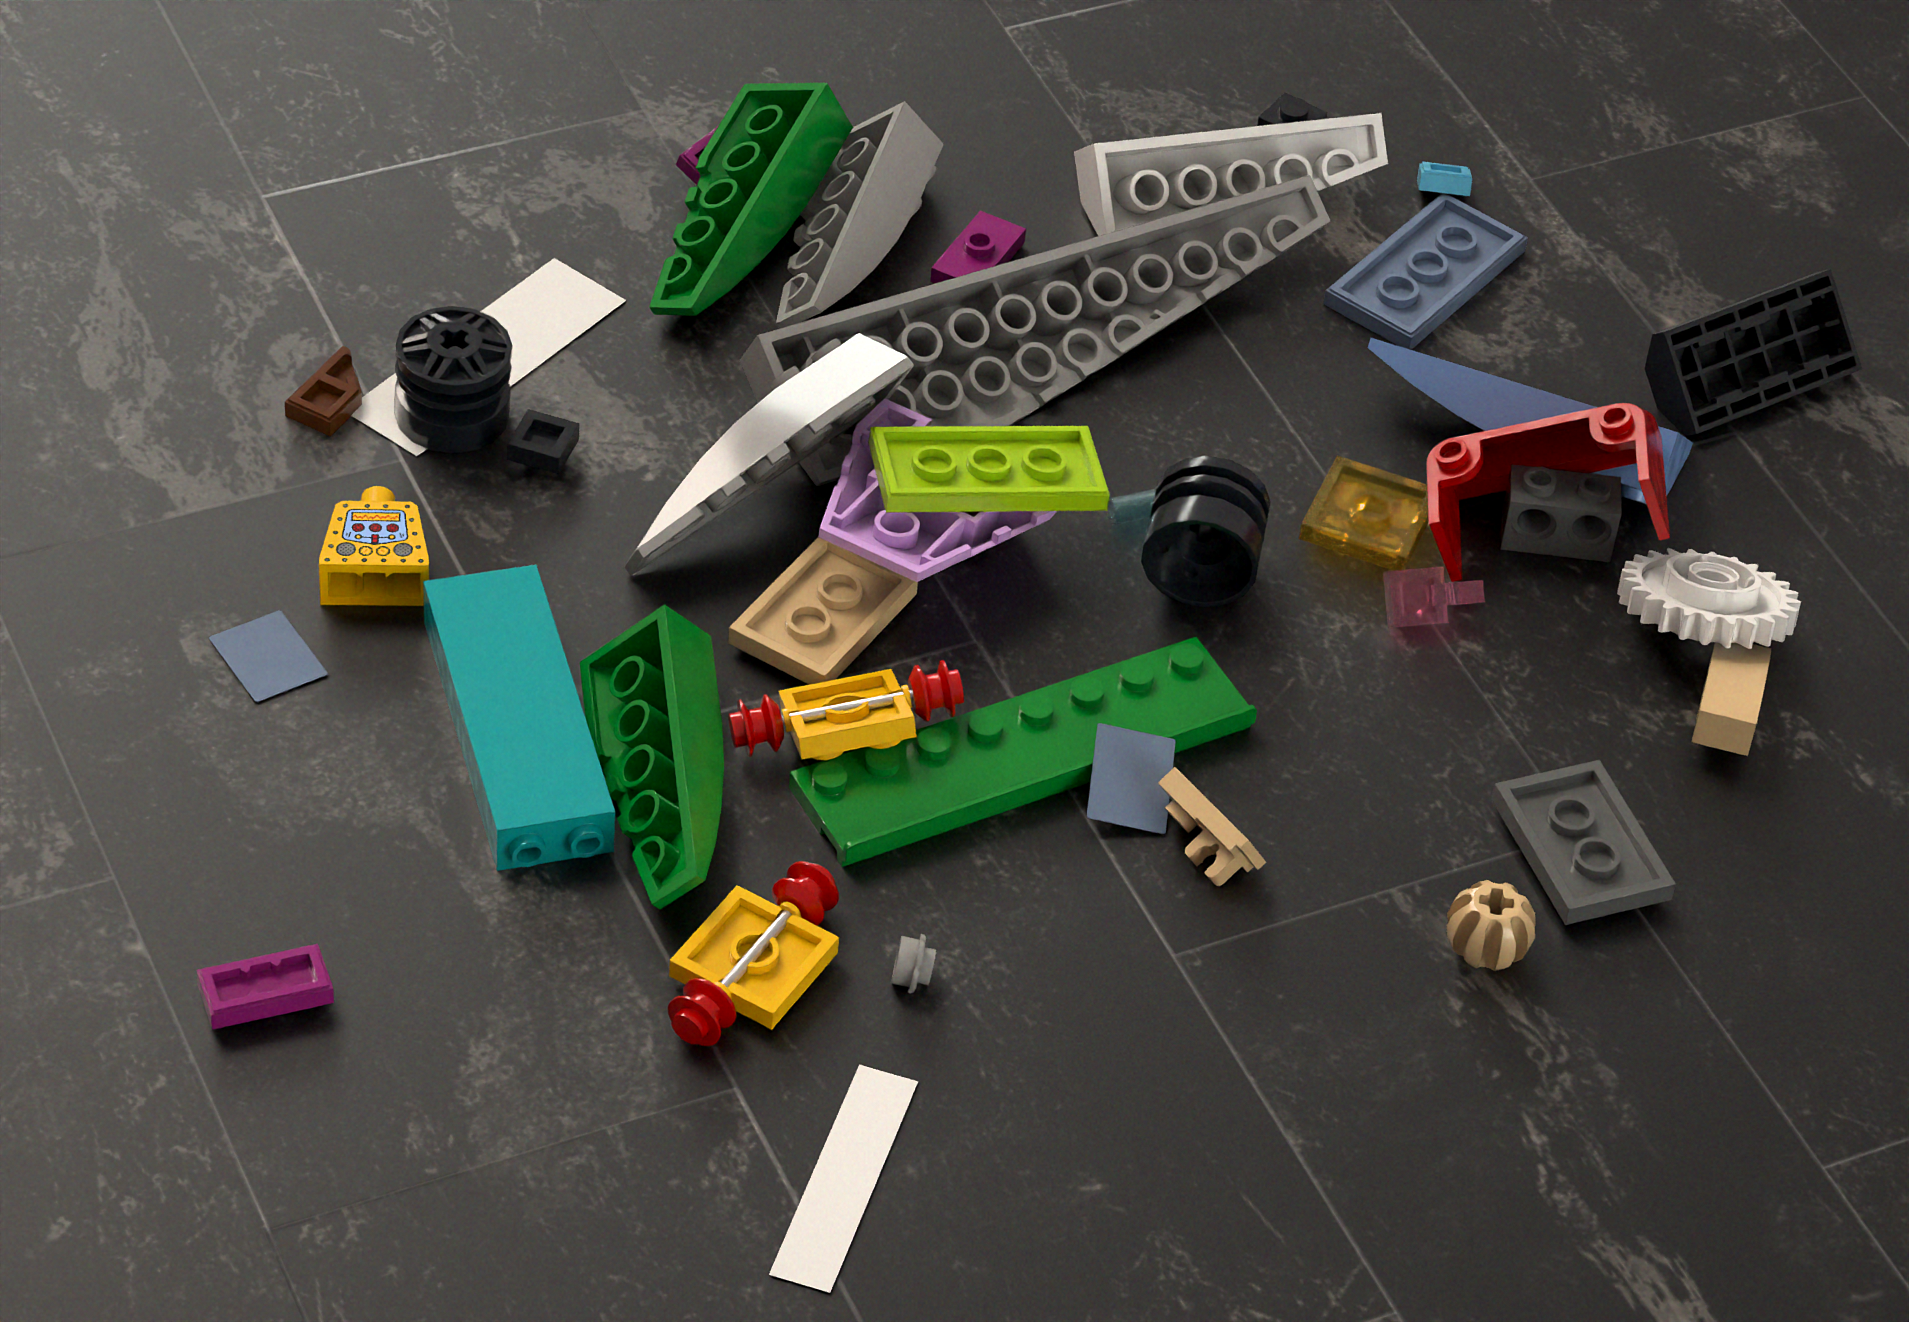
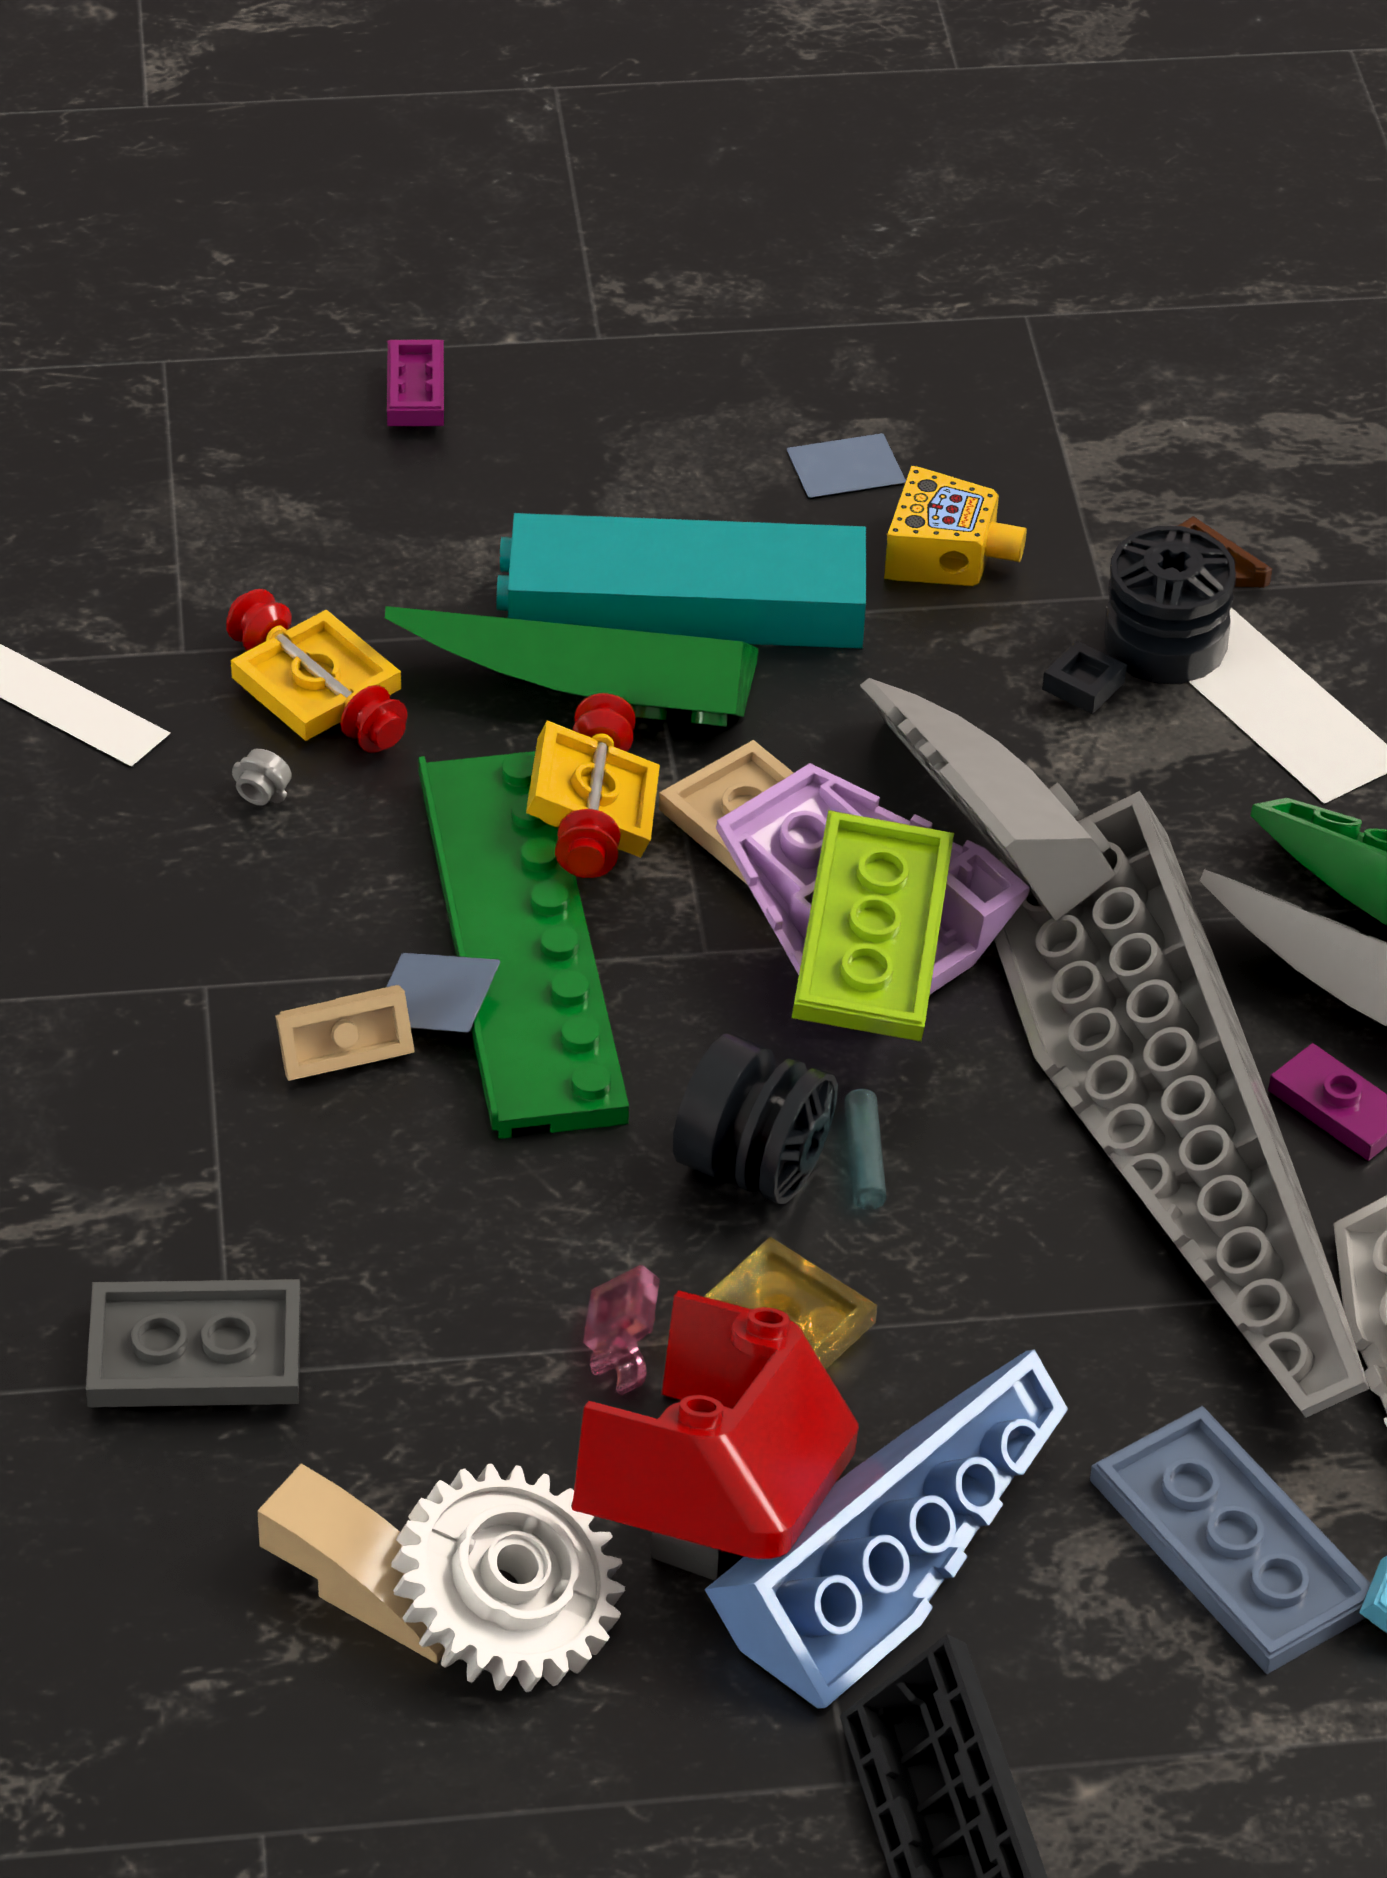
camera: 110 degrees right, 0 degrees up
(1491, 925) = (100, 1208): tan piece -> none

